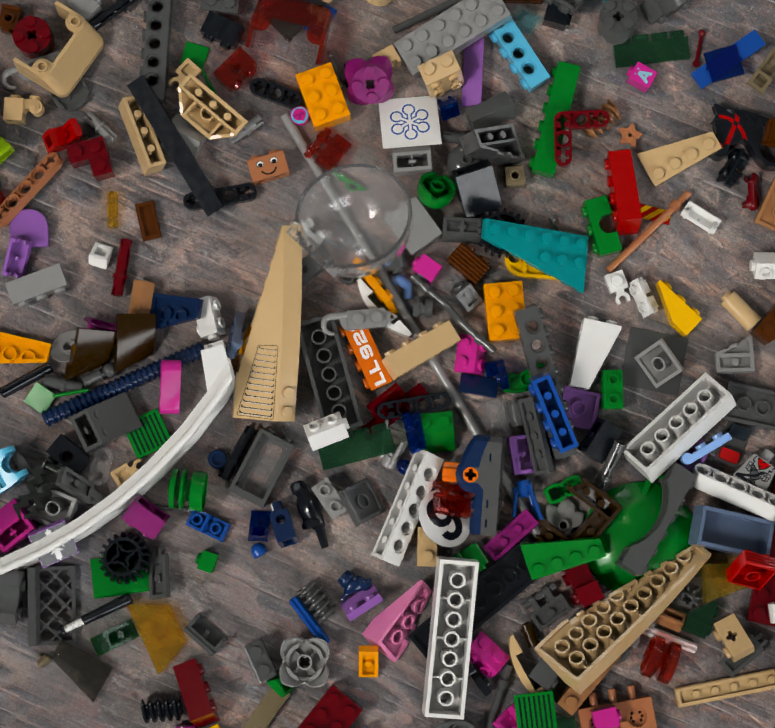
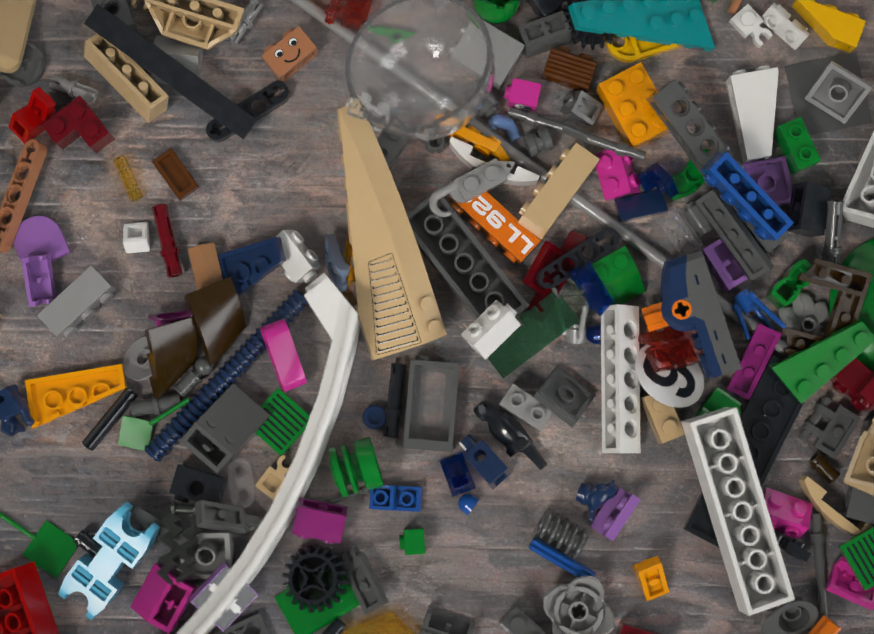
camera: 20 degrees left, 0 degrees up
(394, 624) = (662, 523): bright pink wedge -> none

